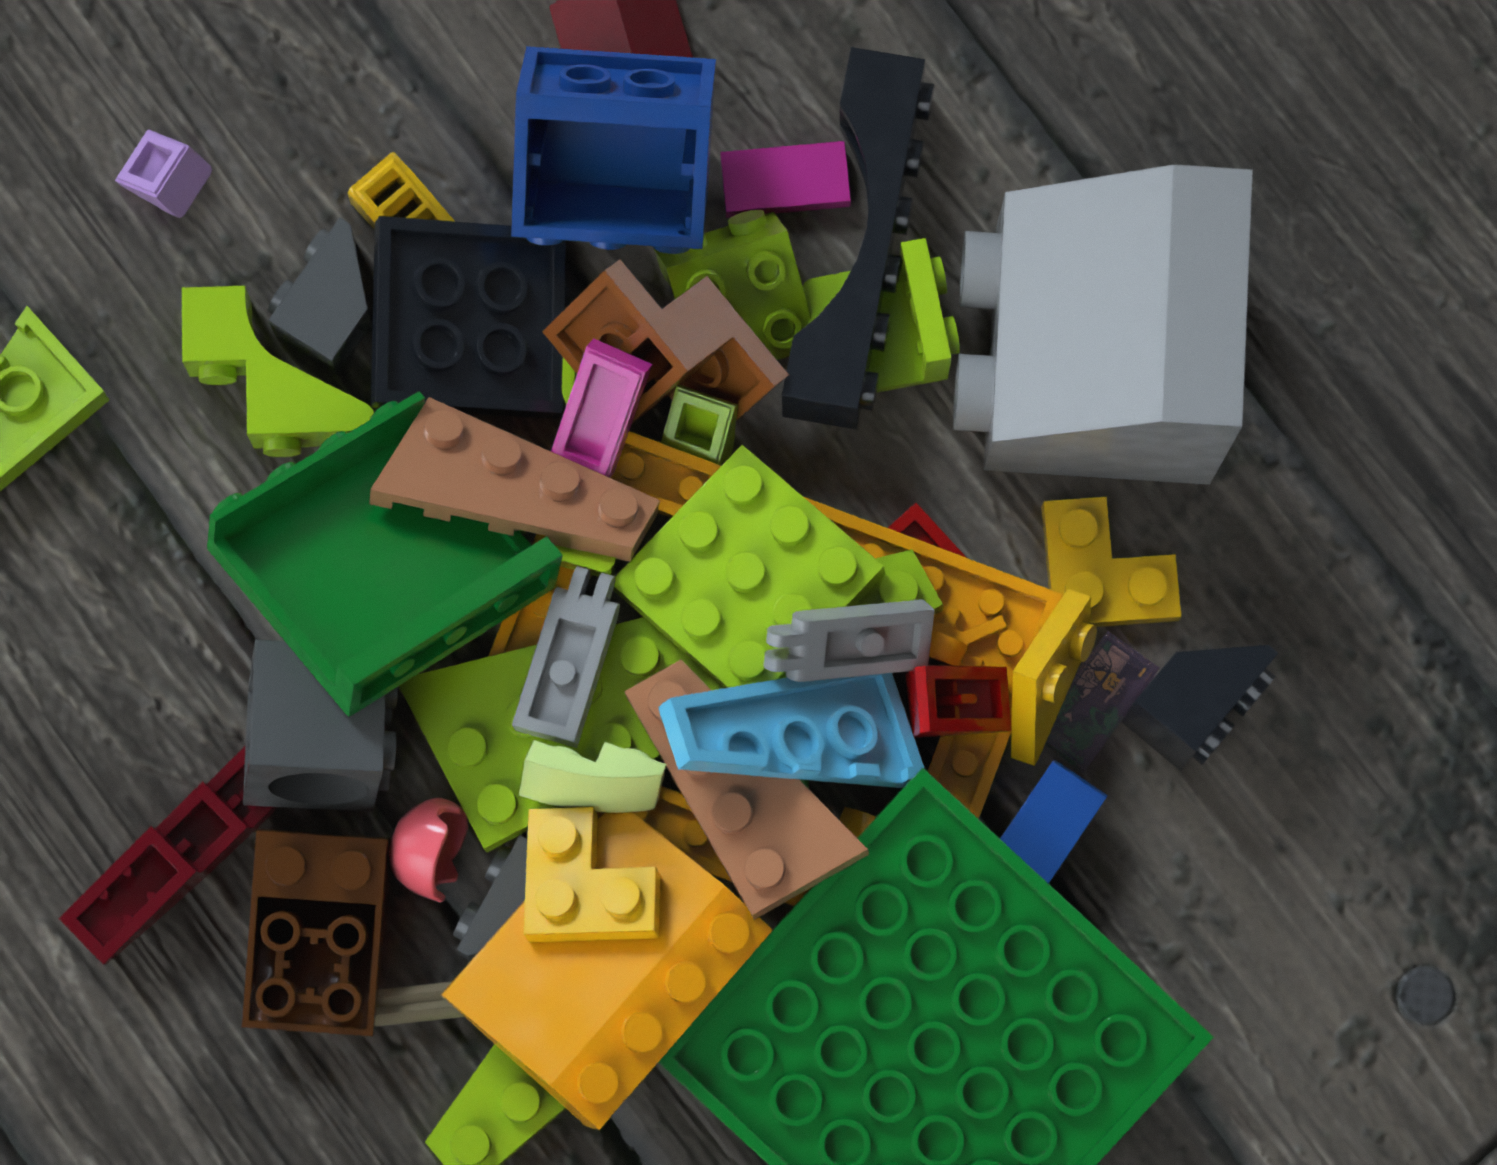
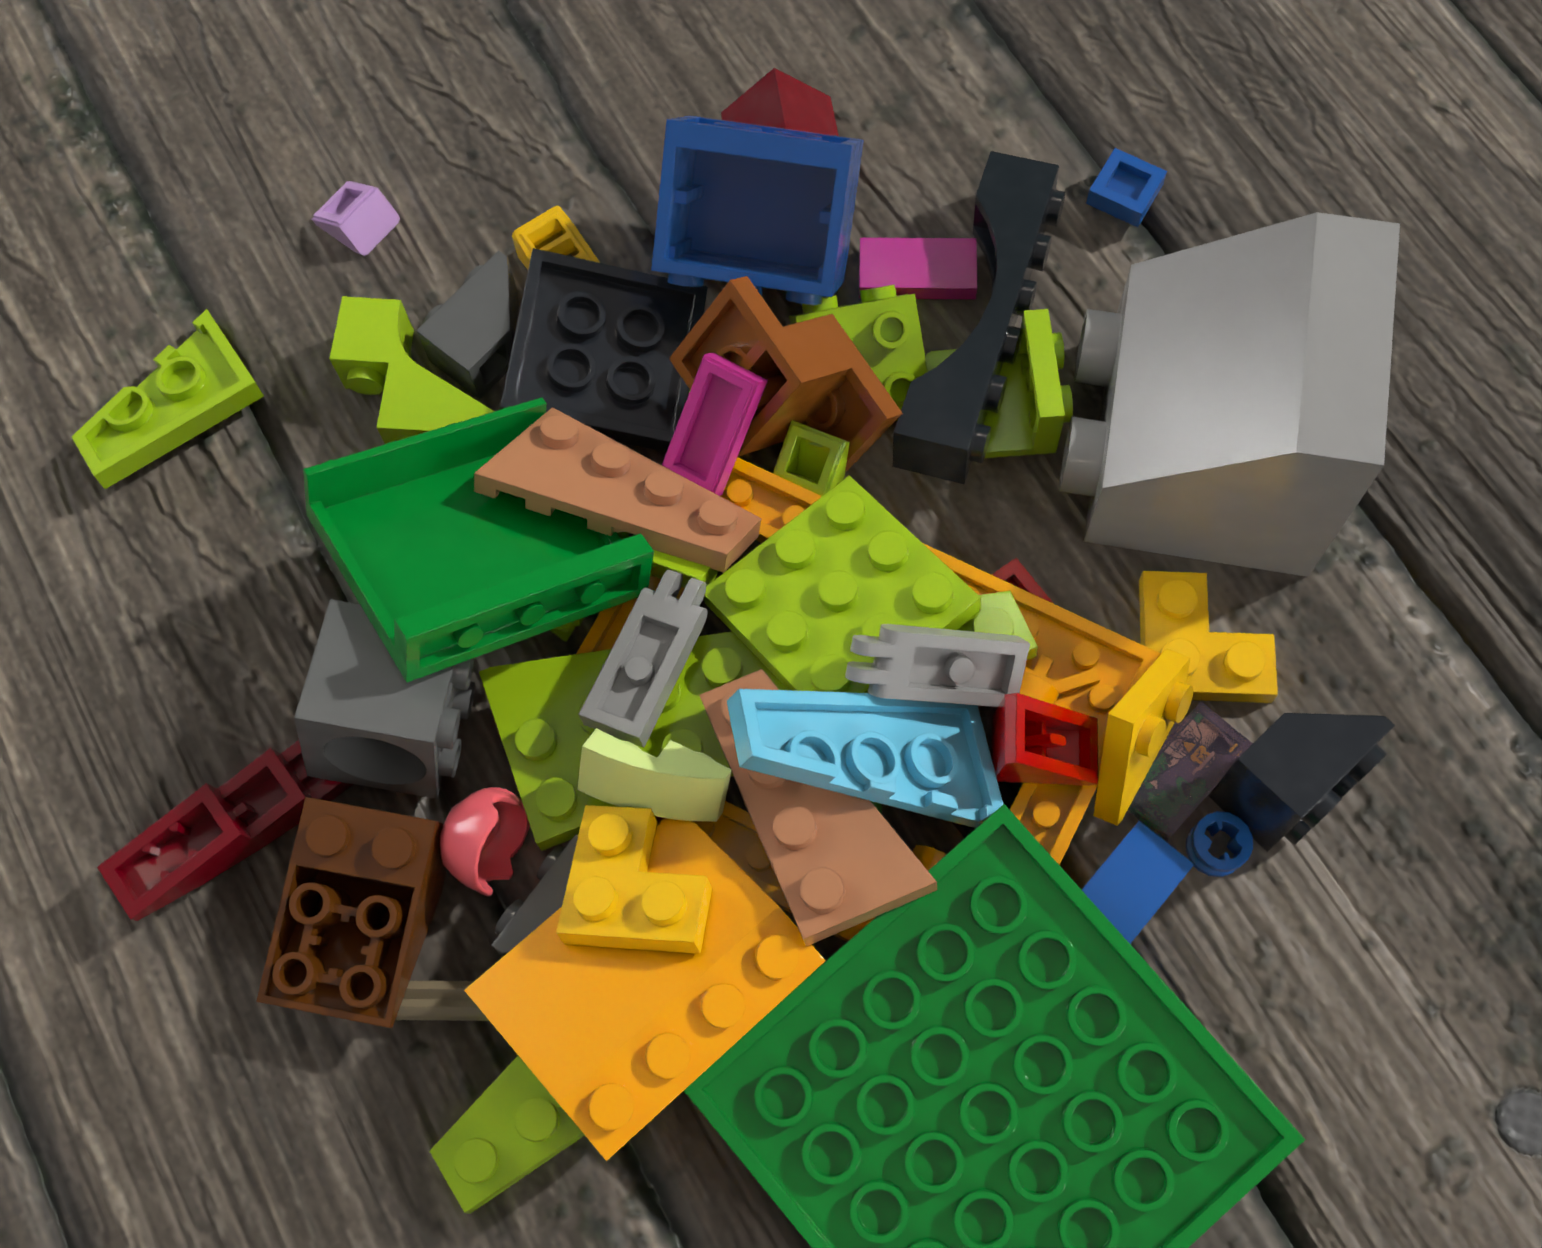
camera: 15 degrees right, 10 degrees down
(999, 64) = (1126, 187): none -> blue plate
(1113, 772) = (1198, 844): none -> blue bush

